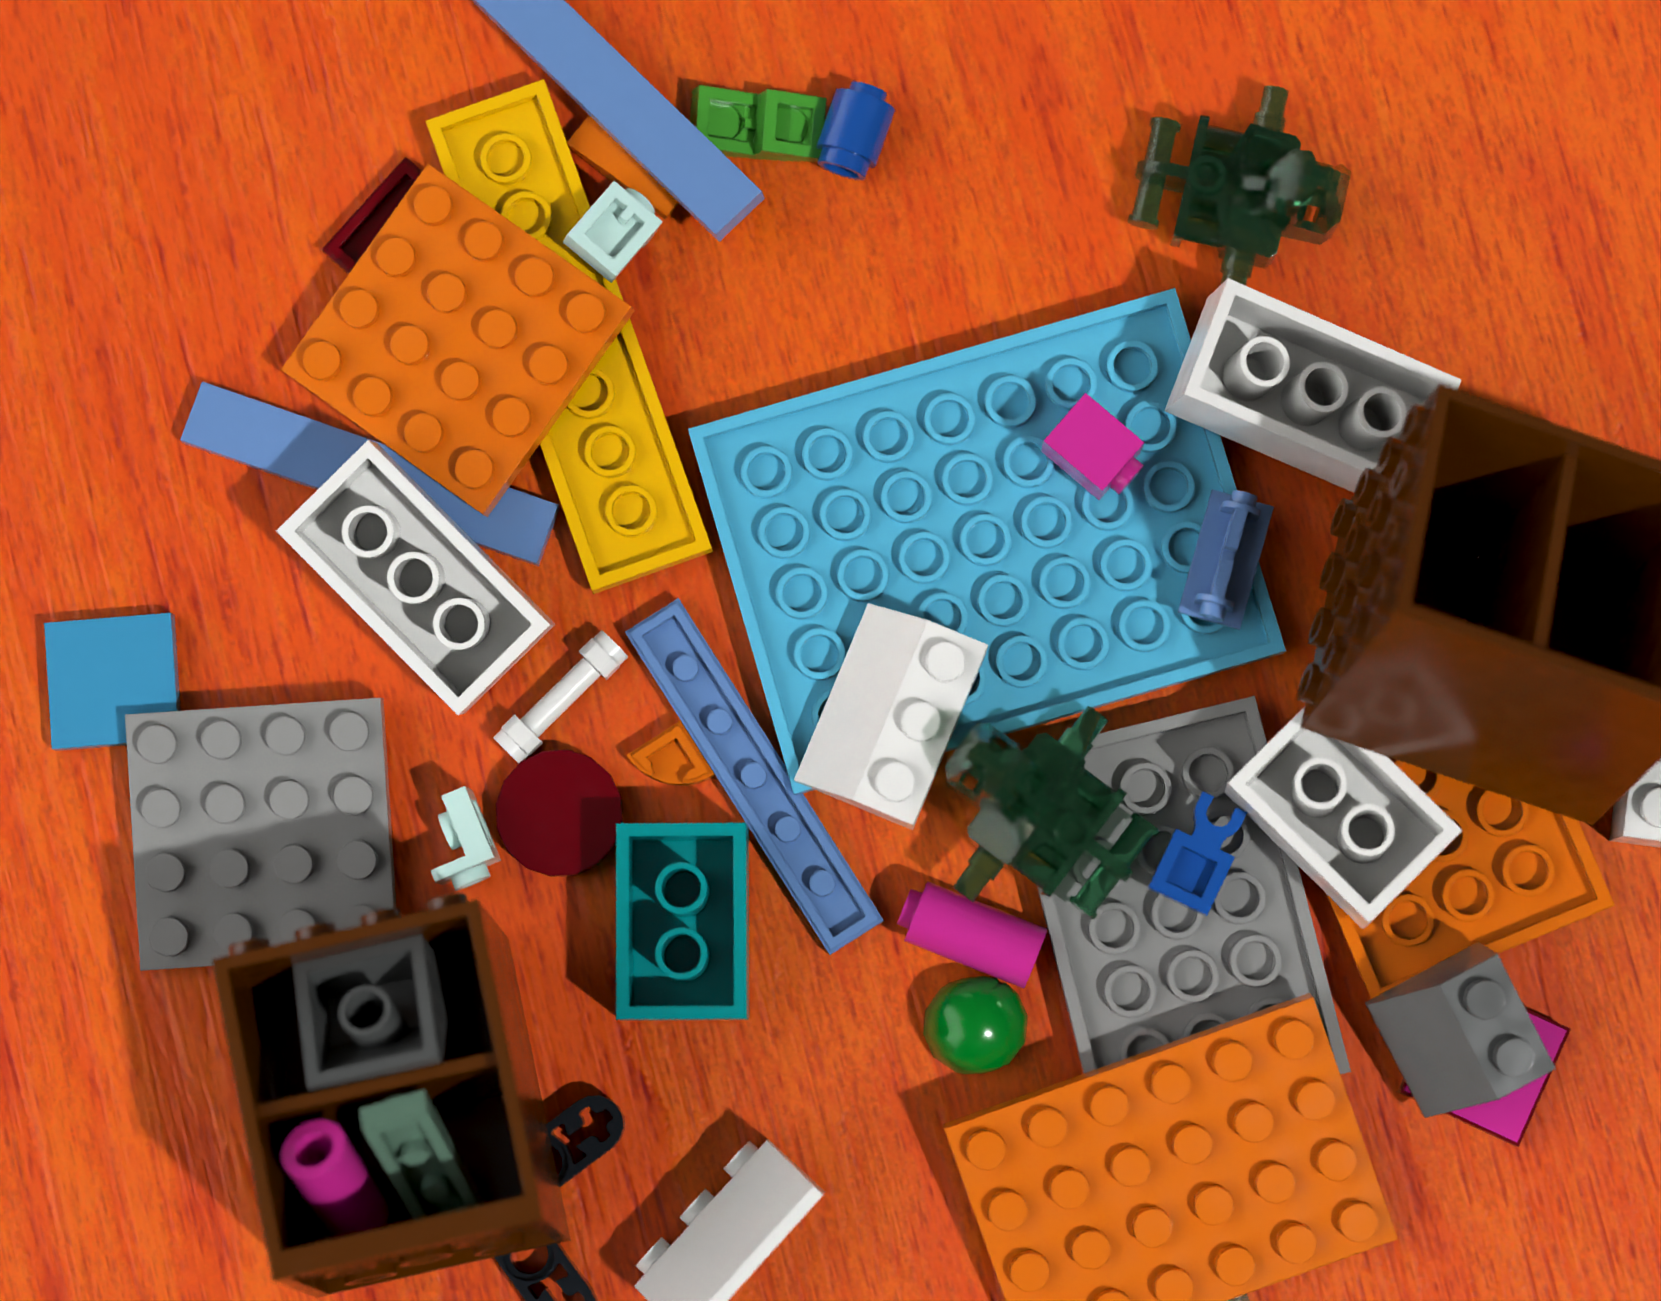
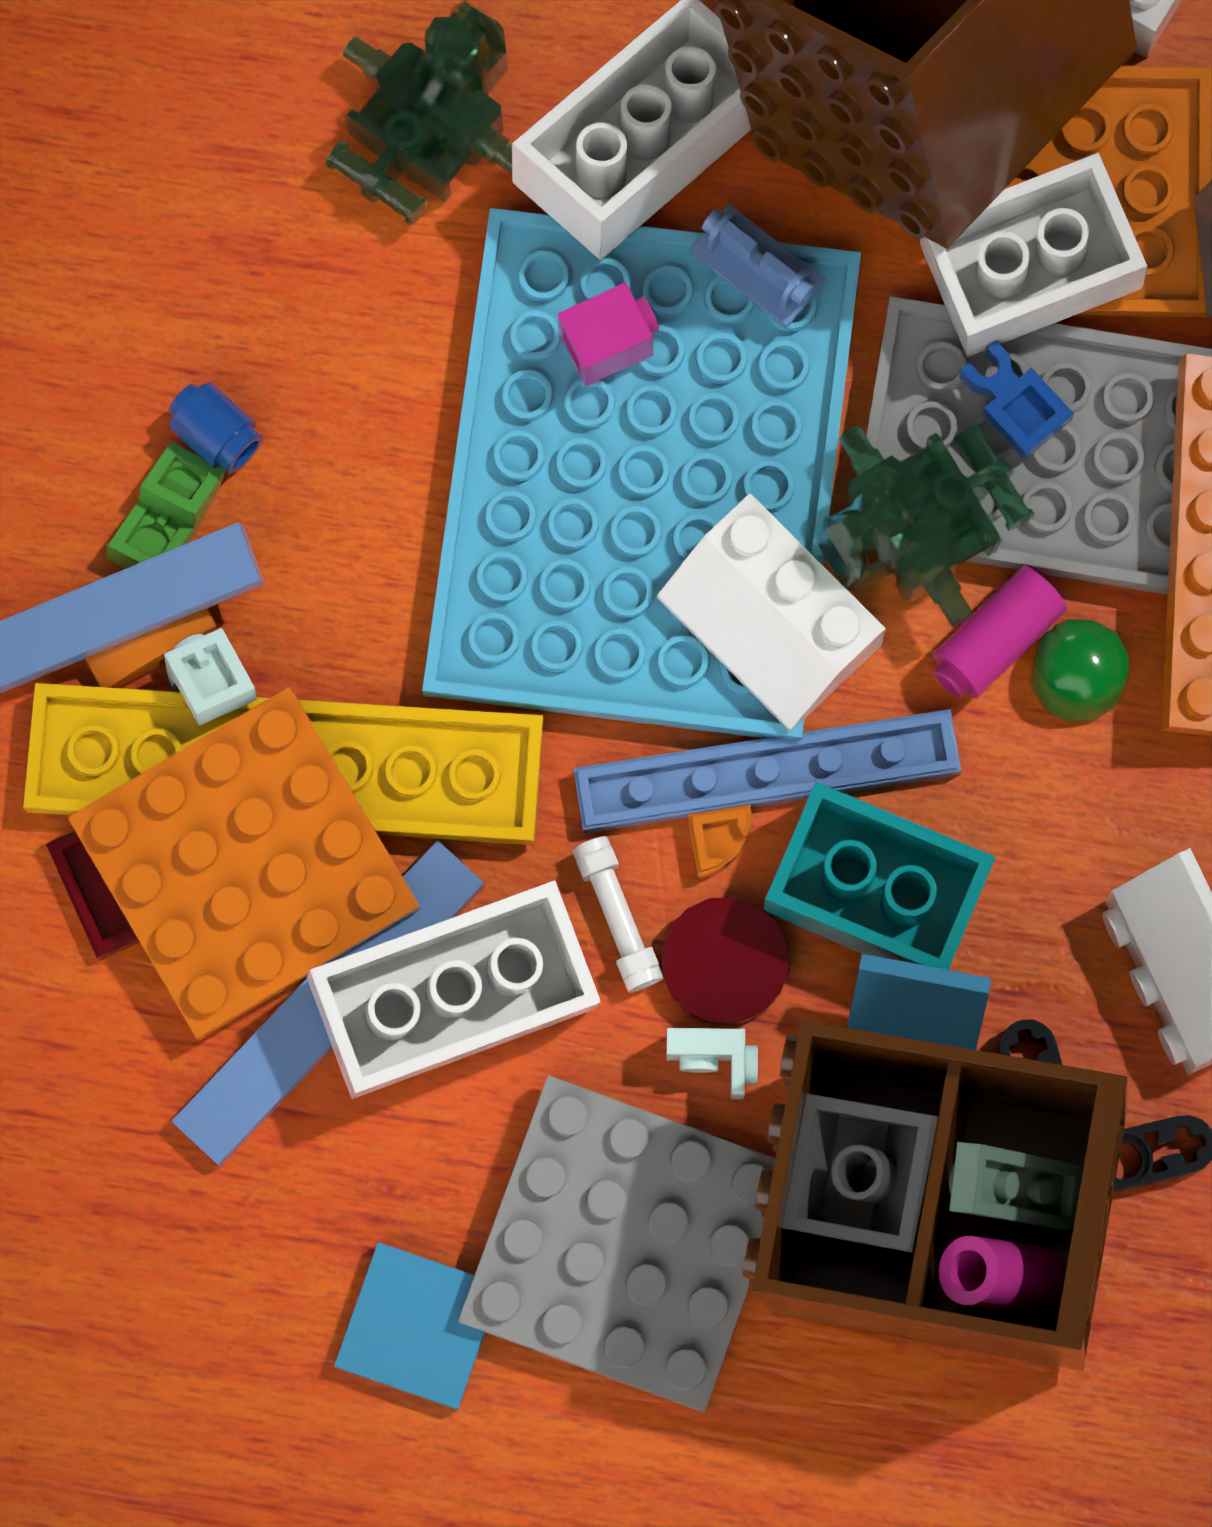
camera: 70 degrees left, 5 degrees down
(570, 1008) = (918, 1002): none -> dark azure tile

